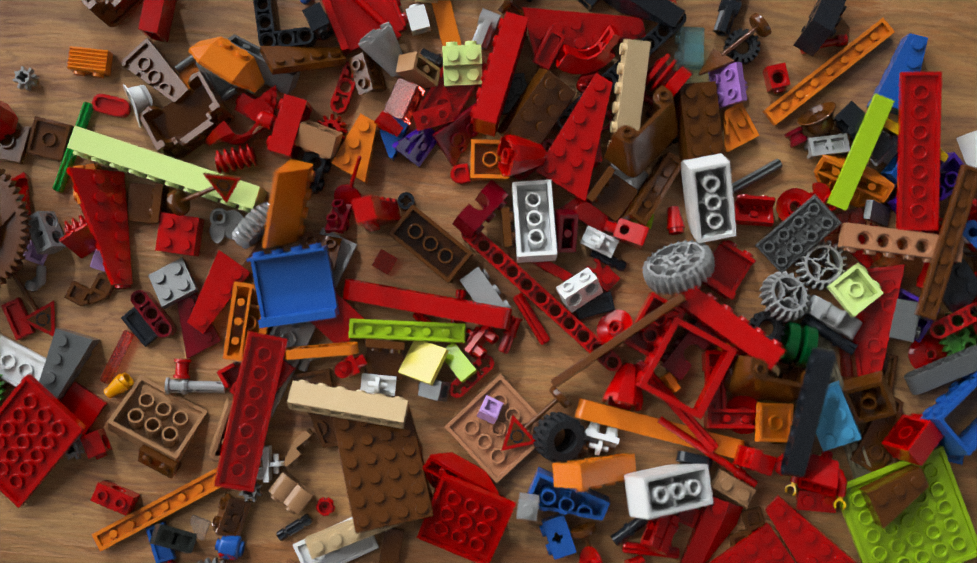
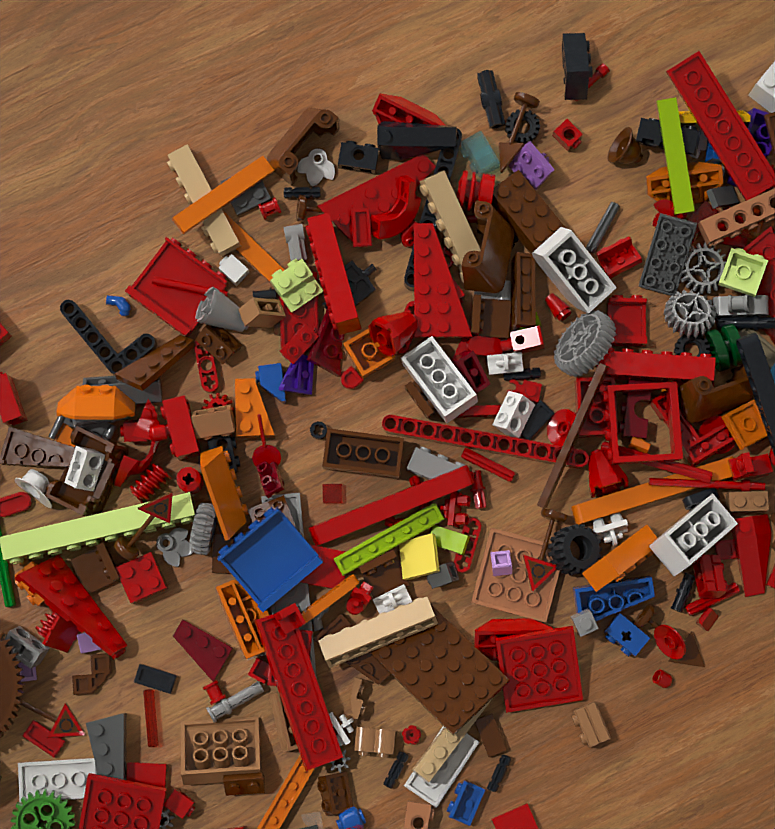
camera: 30 degrees left, 5 degrees down
(38, 281) = (41, 695): light grey arm -> none
(119, 385) = (168, 741): light orange cone -> none
(145, 310) = (151, 657): dark red beam -> none
(173, 283) = (161, 623): plate -> none
(183, 109) = (84, 468): none -> white brick
(216, 291) = (203, 606): red wing -> none
(262, 173) = (186, 474): none -> red piece
(278, 347) = (289, 618): none -> red panel
(318, 22) = (151, 323): black brick -> none
(375, 211) = (300, 454): red wedge -> none
(388, 123) = (264, 373): red cone -> none
(404, 100) = (264, 345): clear red brick -> none
(471, 220) = (386, 410): dark red arch -> none
(537, 107) = (382, 283): reddish brown brick -> none
(737, 127) = (561, 196): orange wing -> none
(787, 198) = (640, 230): red dish -> none
(796, 137) = (615, 174): dark red wheel -> none
(827, 145) = (645, 166): light grey hinge -> none
(828, 71) = (608, 103): orange plate -> none
(906, 58) = (666, 55): blue wedge -> none

